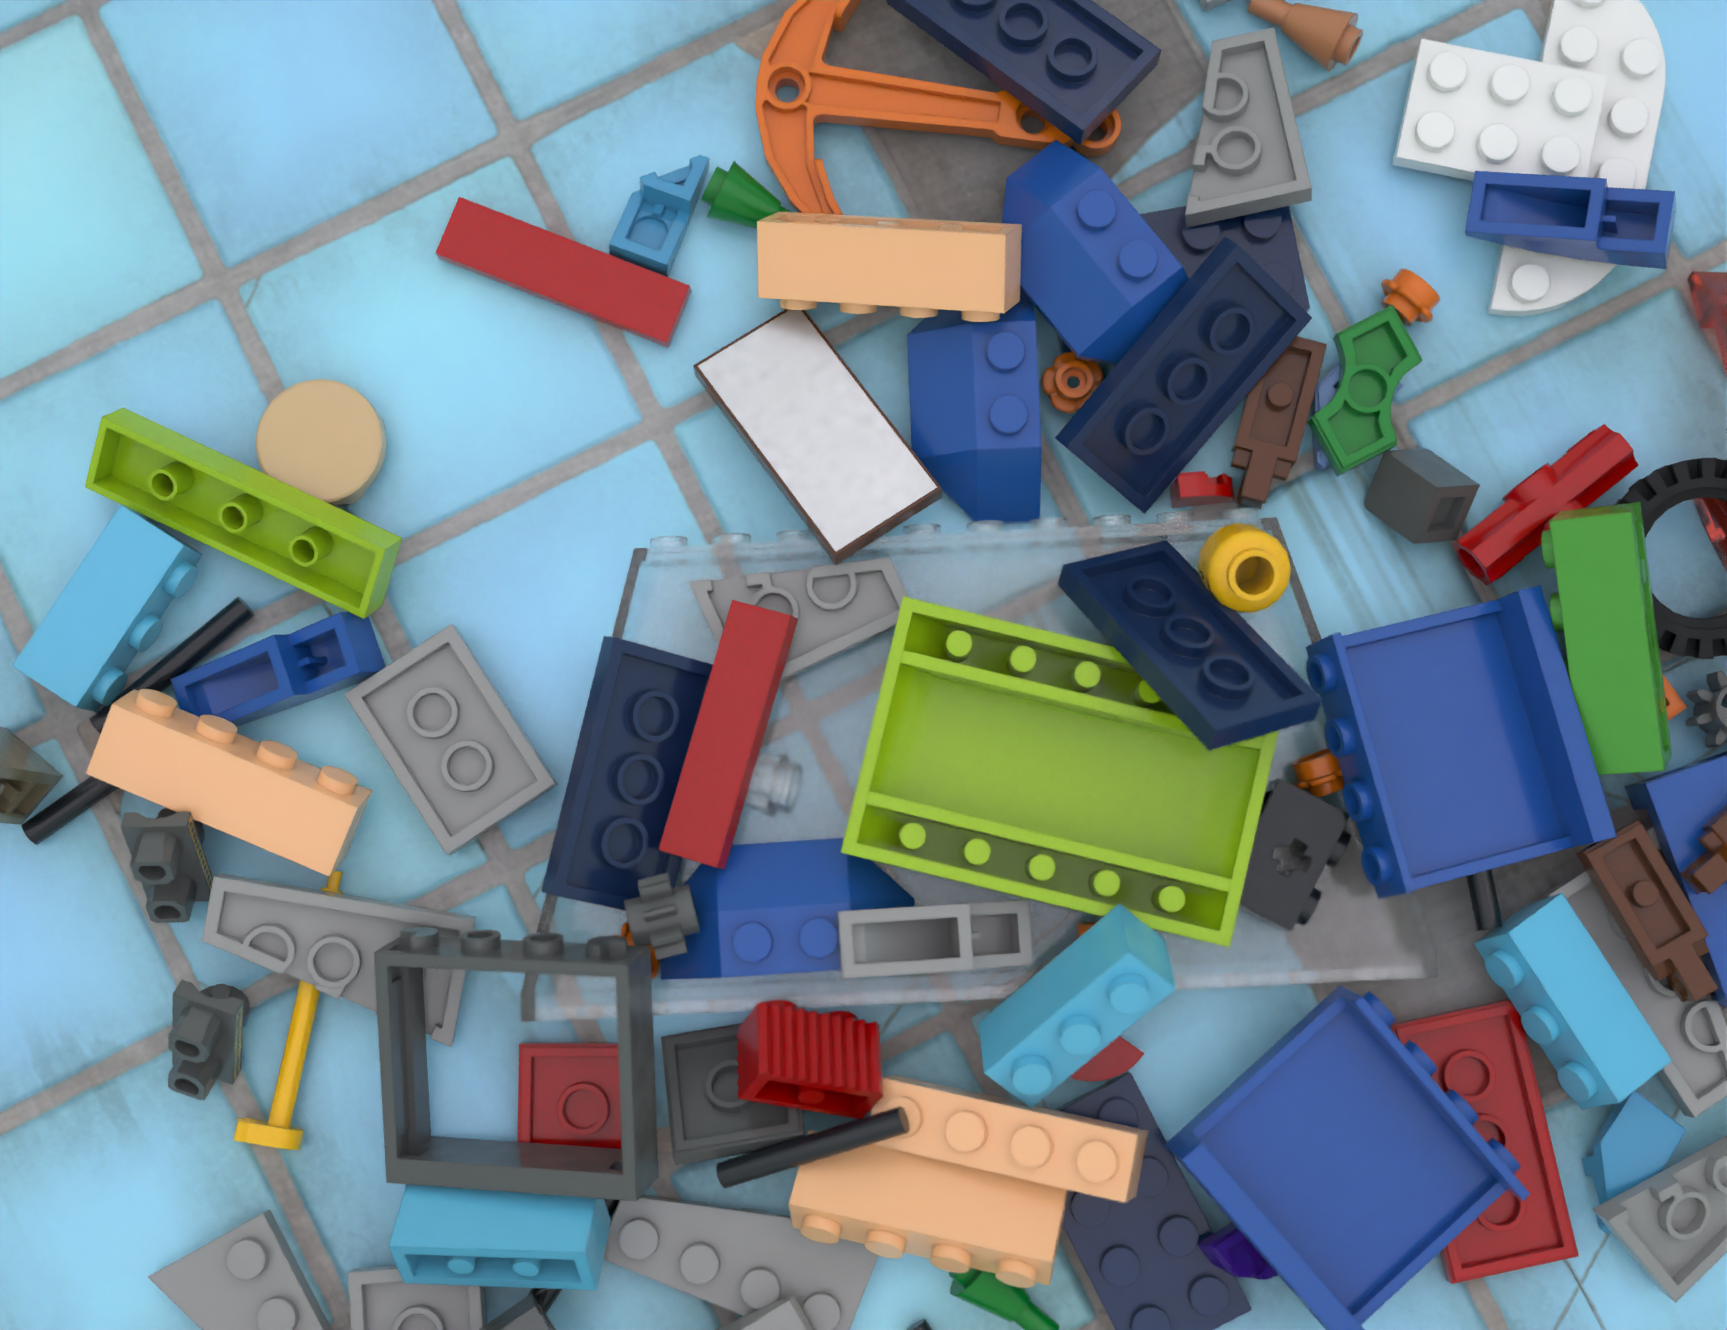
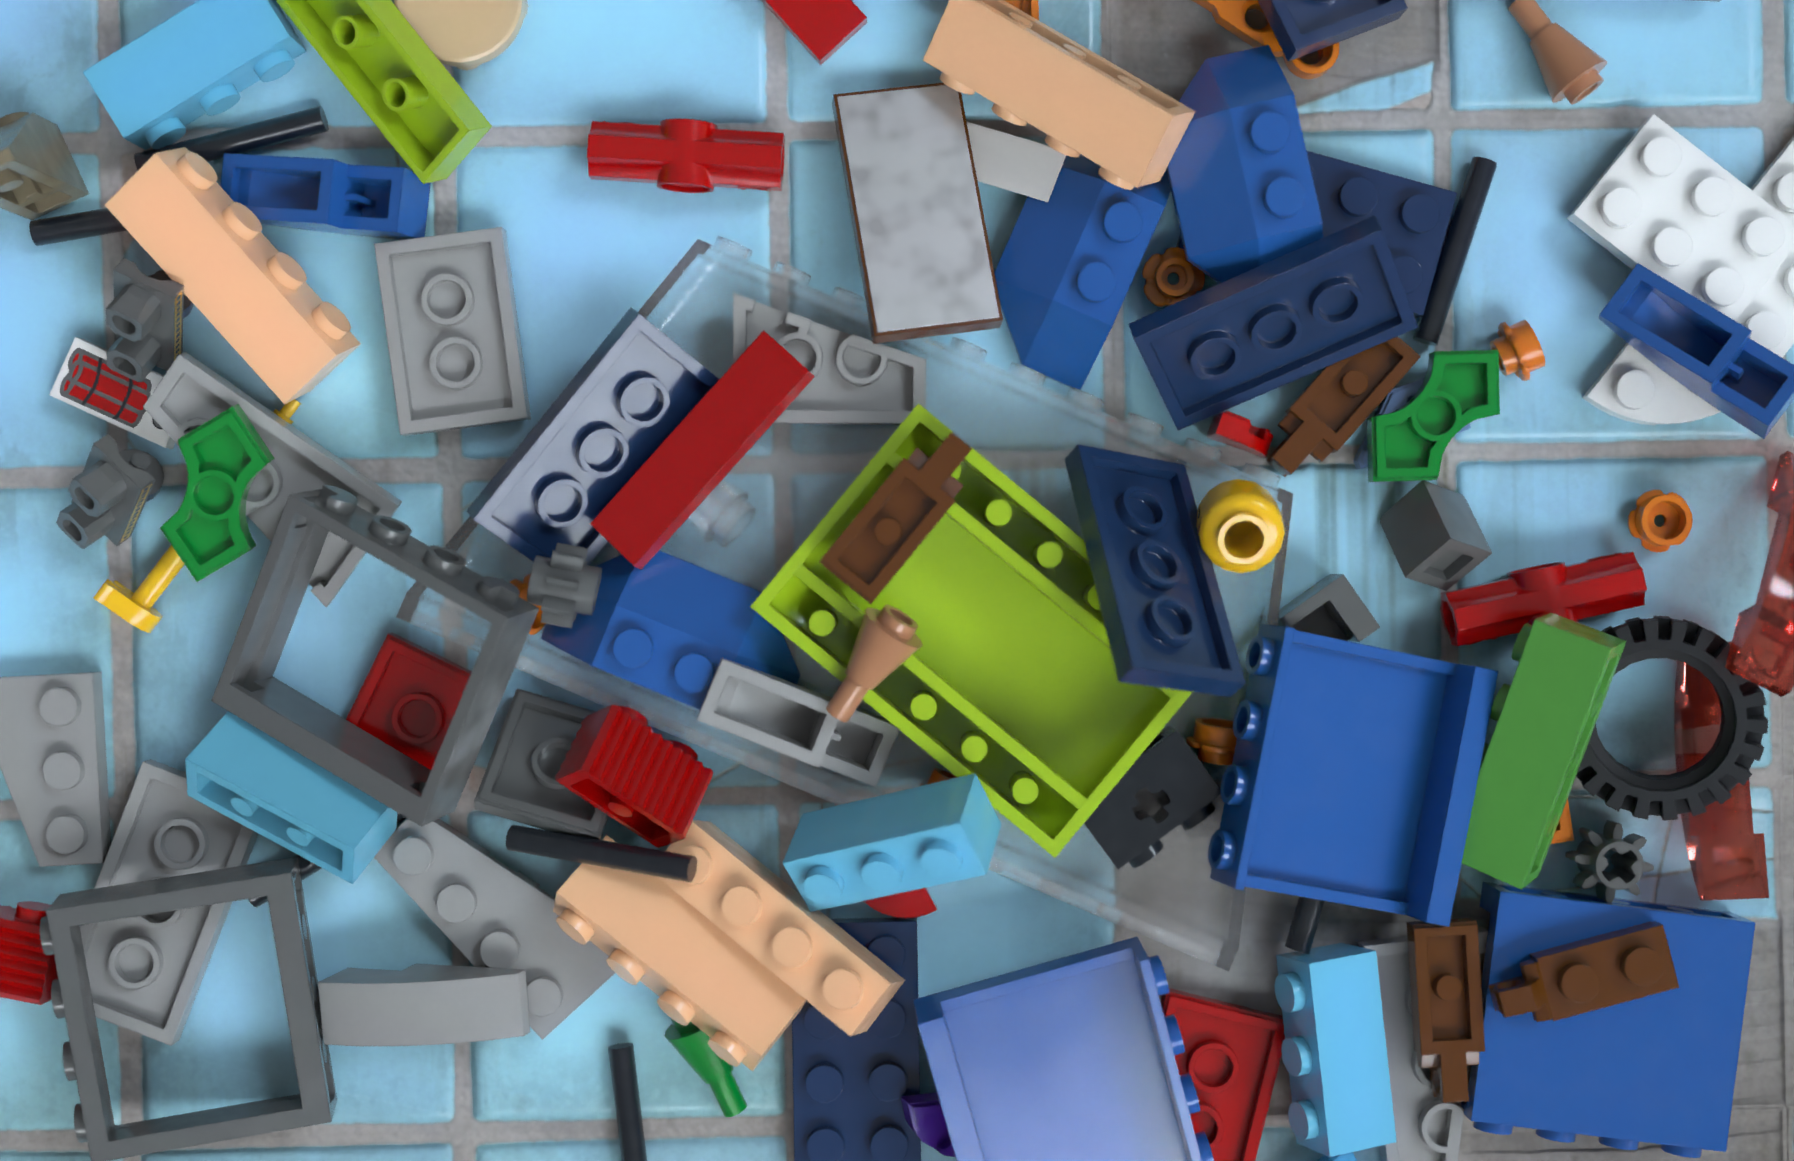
camera: 20 degrees right, 5 degrees up
(155, 948) = (98, 390): none -> tile
(298, 960) = (221, 466): none -> green tile
(587, 482) = (686, 155): none -> red piece
(883, 348) = (1014, 162): none -> white sticker
(936, 707) = (897, 519): none -> reddish brown hinge
(977, 831) = (880, 647): none -> nougat cone
(1248, 134) = (1447, 127): light grey wing -> none
(1313, 261) = (1455, 250): none -> black bar
(1363, 604) = (1330, 610): none -> dark grey panel
(1628, 381) = (1676, 524): none -> orange plate

